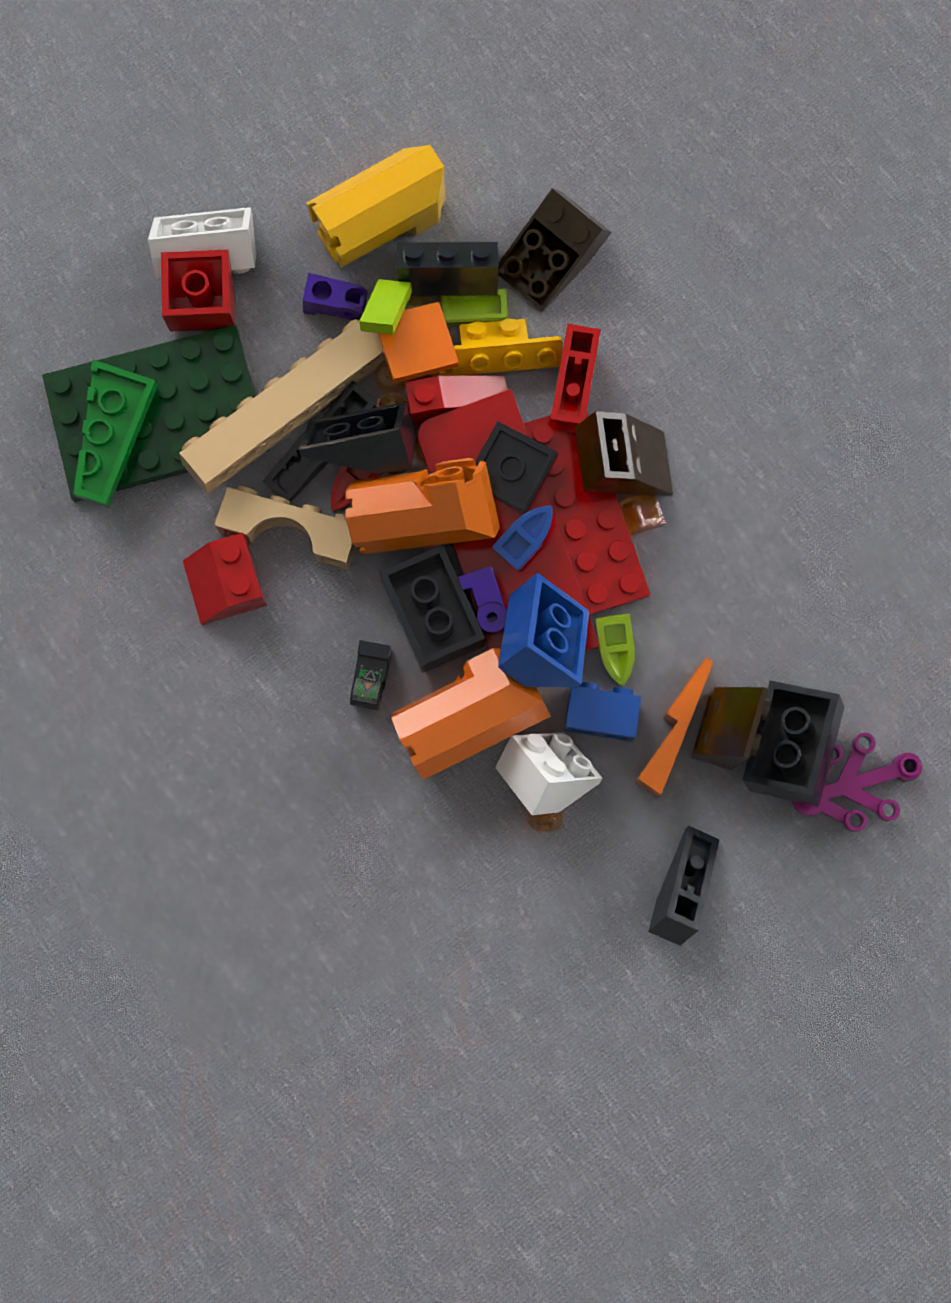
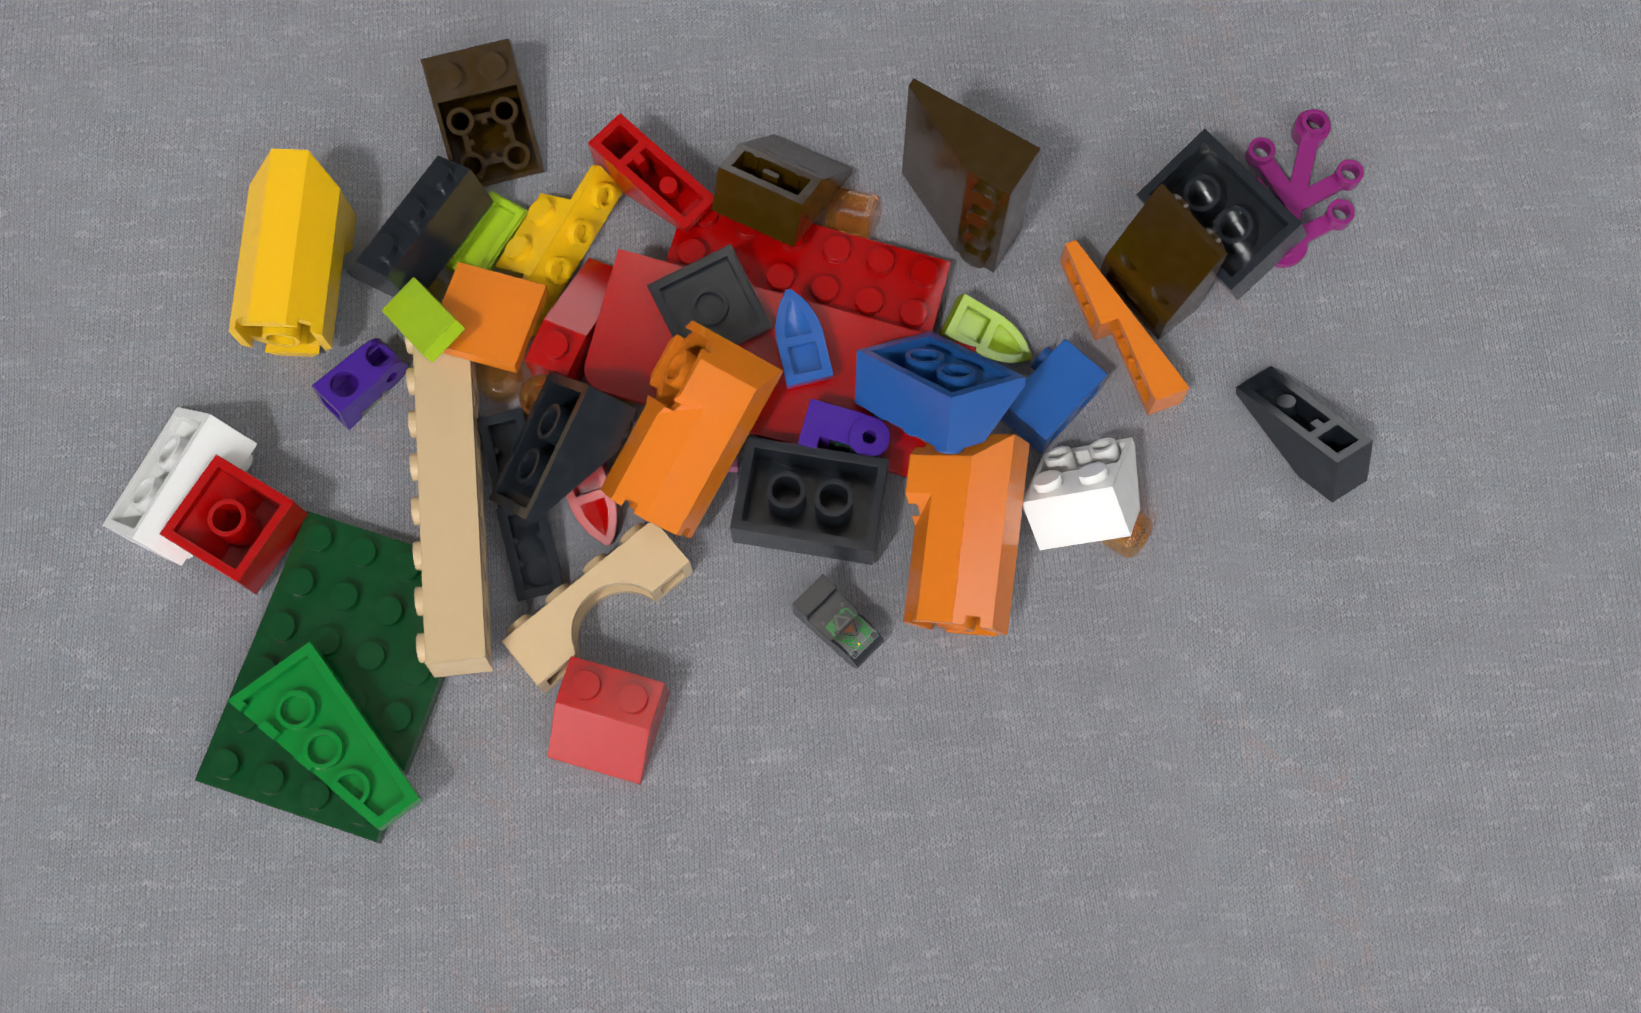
camera: 55 degrees left, 5 degrees down
(700, 575) = (967, 174): none -> dark brown slope

